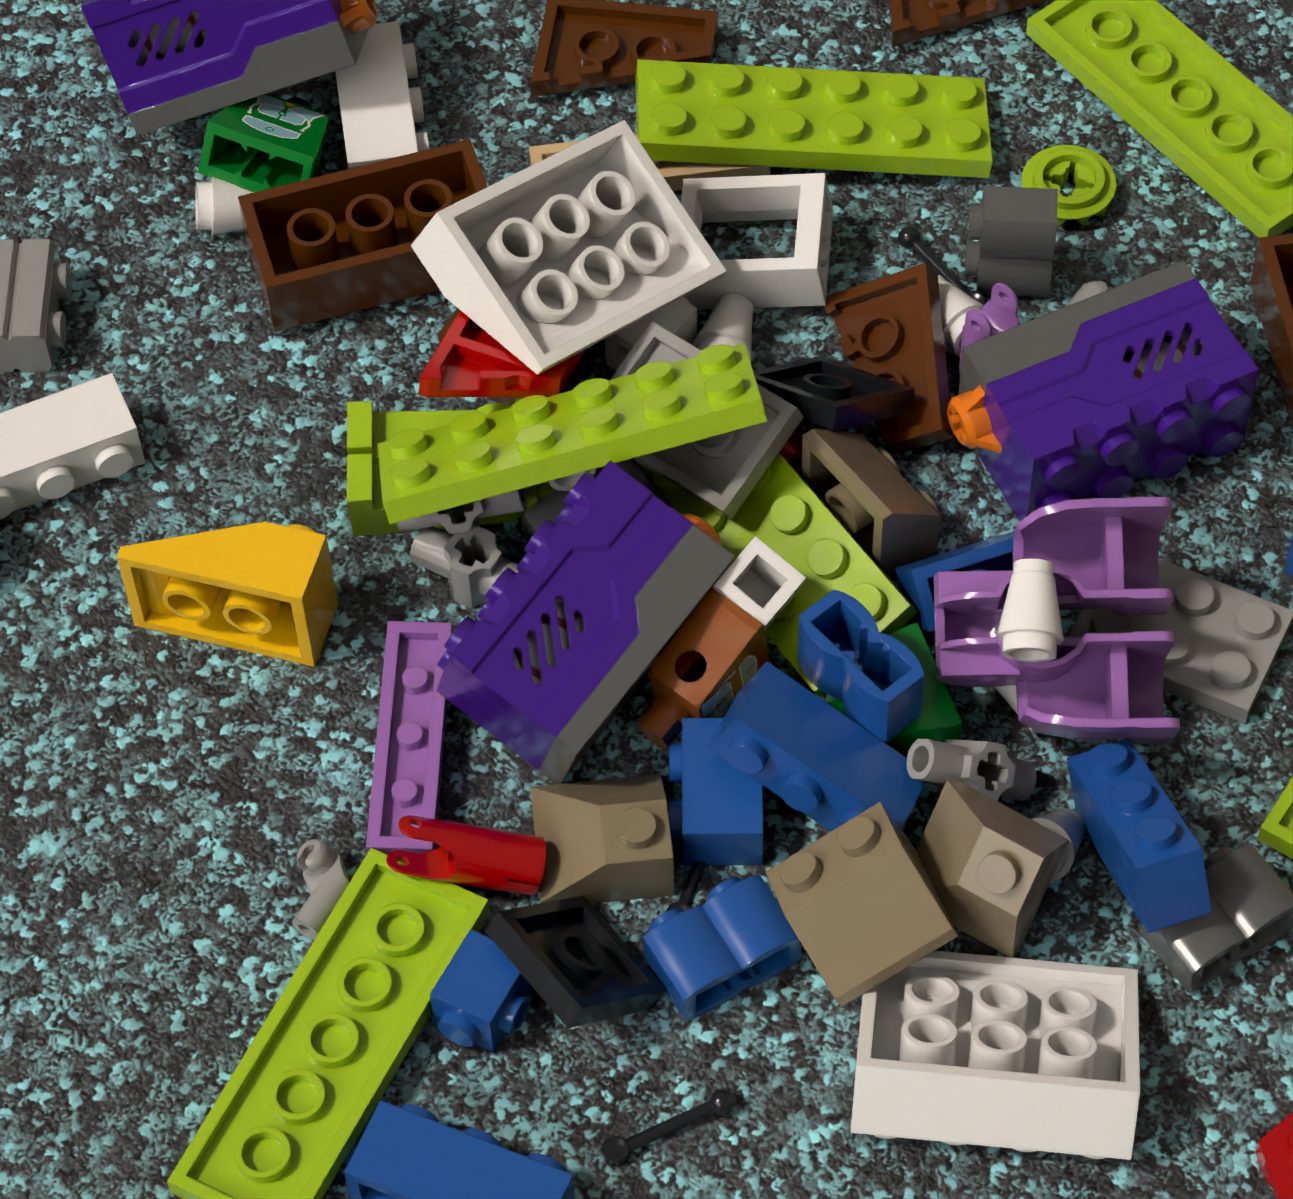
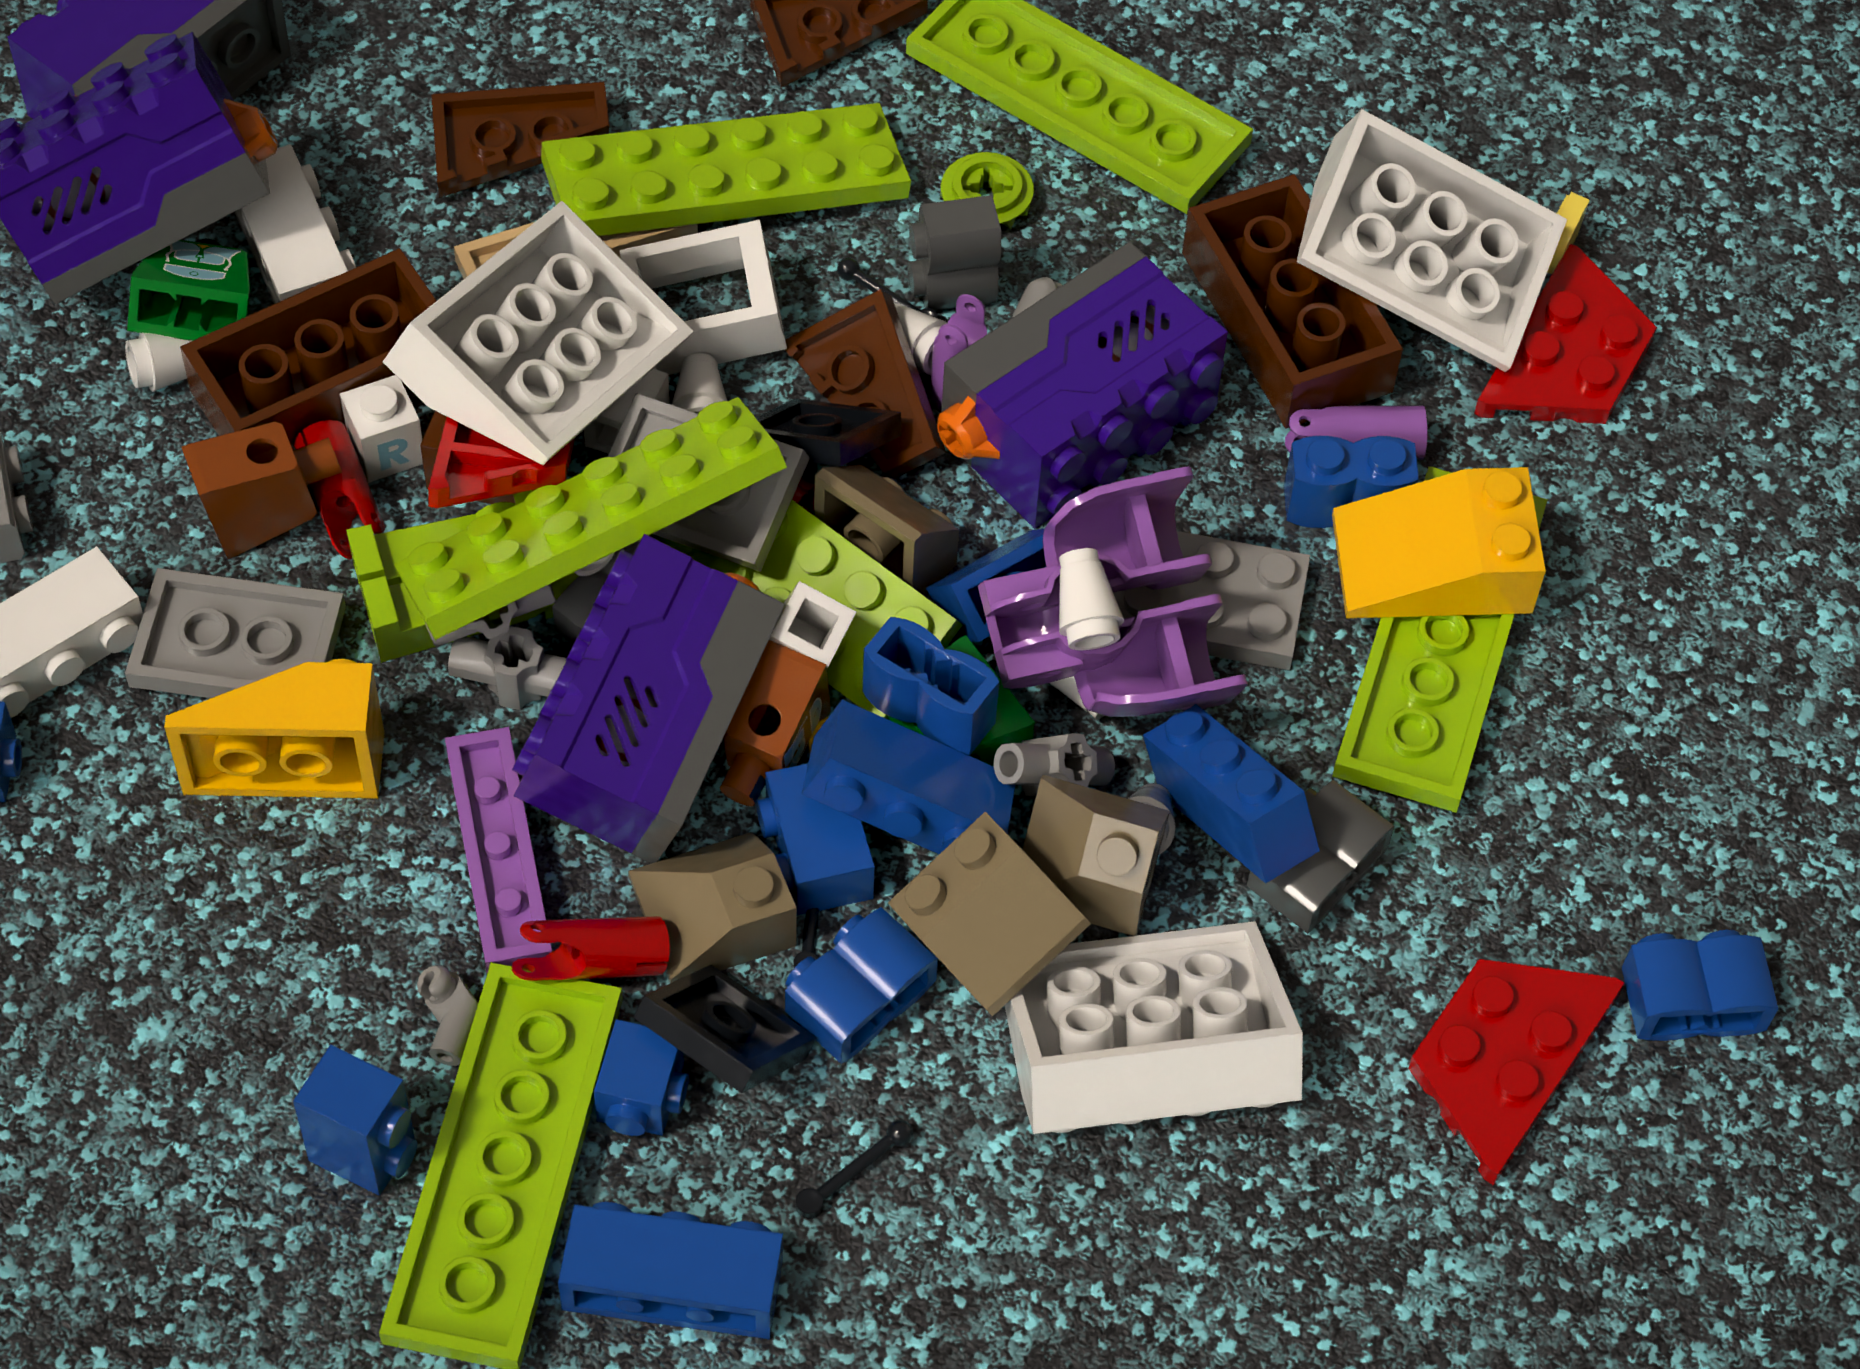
camera: 20 degrees left, 0 degrees up
(198, 972) = (356, 1120): none -> blue brick
(215, 477) = (226, 632): none -> light grey plate
(275, 341) = (257, 483): none -> dark orange torso
(357, 352) = (343, 494): none -> red piece
(410, 310) = (383, 427): none -> white brick

